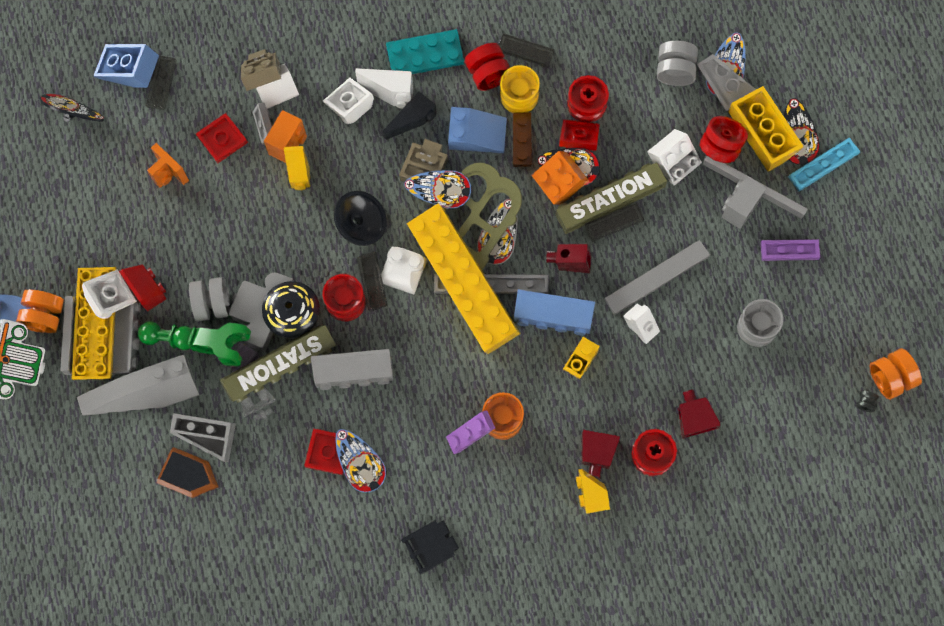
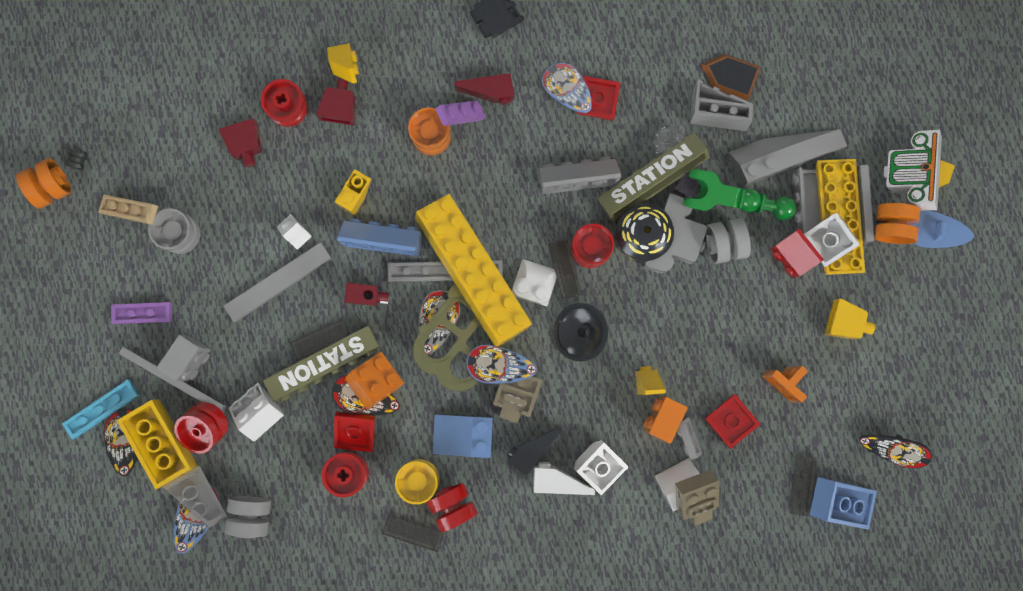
camera: 175 degrees right, 10 degrees up
(100, 224) = (848, 321): none -> yellow torso
(426, 52) = (521, 527): teal plate -> none
(436, 463) = (491, 88): none -> dark red slope
(522, 140) = (415, 429): reddish brown plate -> none
(807, 344) = (128, 209): none -> tan tile

